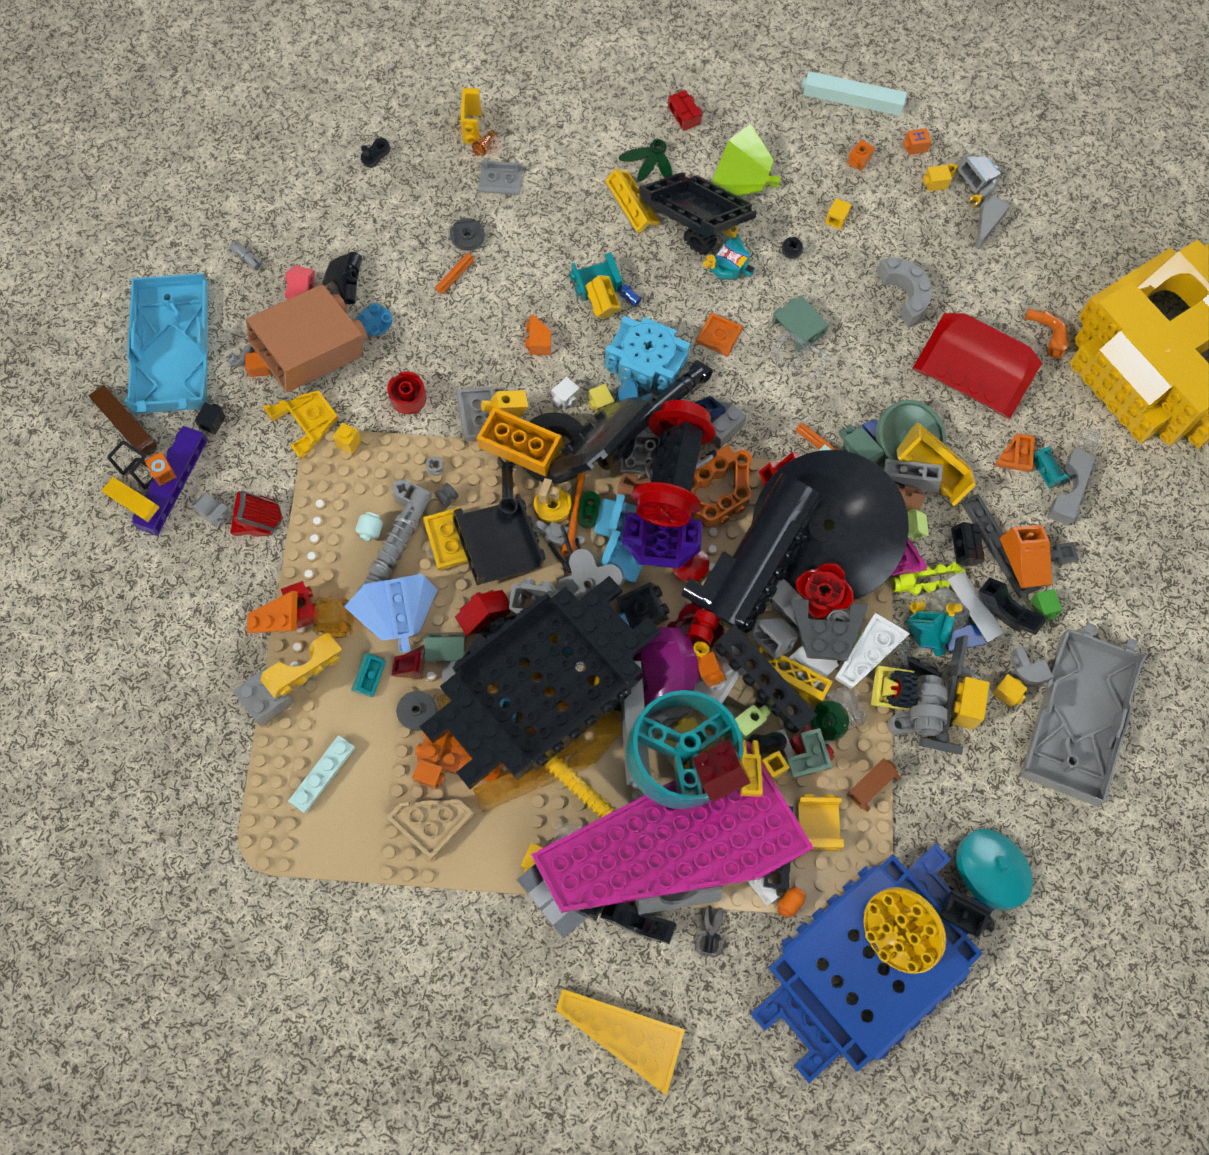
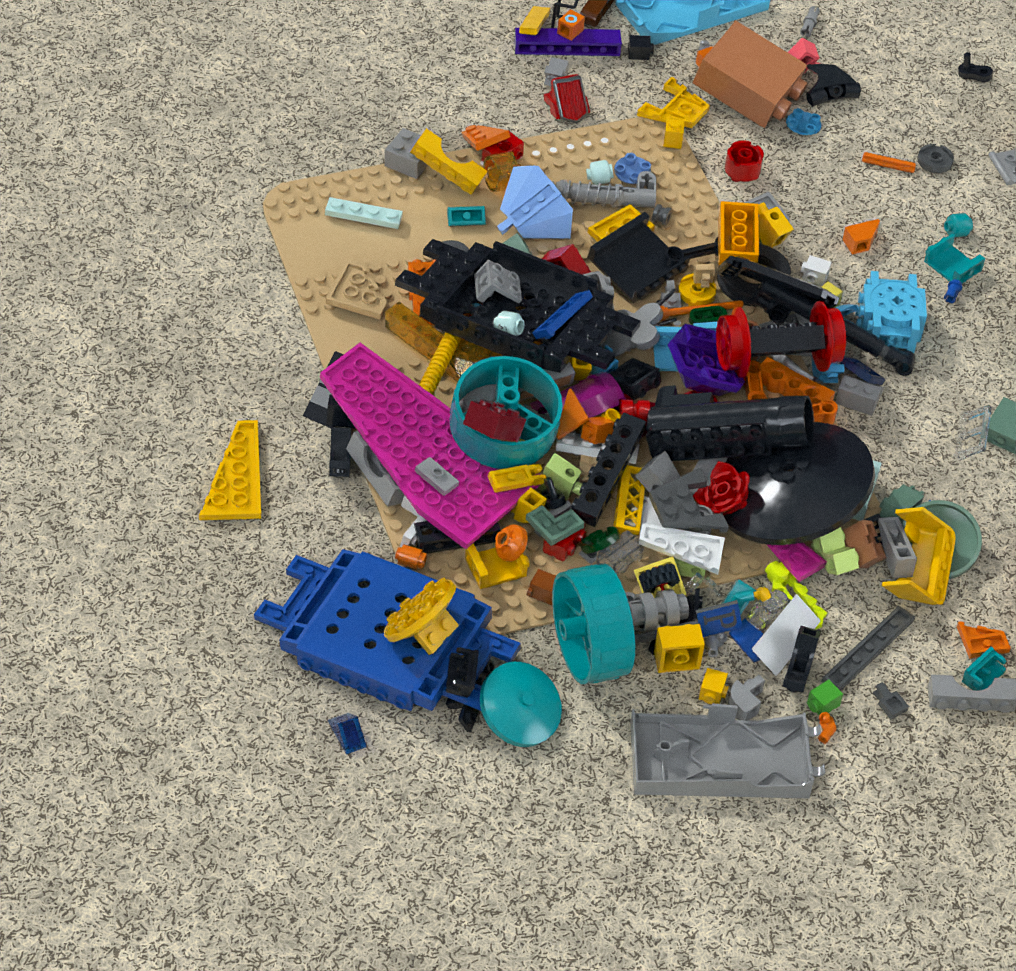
camera: 65 degrees right, 20 degrees down
(374, 495) = (629, 167): none -> medium blue dish
(410, 664) = (489, 236): dark red slope -> none
(429, 774) = (395, 270): orange brick -> none
(433, 471) = (685, 196): light grey bush -> none
(506, 689) = (493, 278): none -> light grey bracket
(558, 254) = (958, 224): none -> teal head
(573, 700) = (509, 322): none -> light aqua head
(575, 644) = (567, 310): none -> blue plate
(602, 297) = (934, 266): yellow brick -> none
(694, 682) = (572, 415): none -> orange tile
(711, 926) = (361, 514): black piece -> none
(719, 334) = (957, 370): orange tile -> none
(728, 845) = (436, 476): none -> light grey plate
(812, 437) = (890, 475): orange axle -> none
(812, 796) = (514, 544): none -> orange piece
(953, 771) = (593, 623): none -> teal wheel
(967, 544) = (851, 615): black brick -> none
(967, 1040) = (348, 732): none -> clear blue slope
(1029, 555) = (867, 665): orange slope -> none
(1073, 615) = (828, 727): none -> orange arm

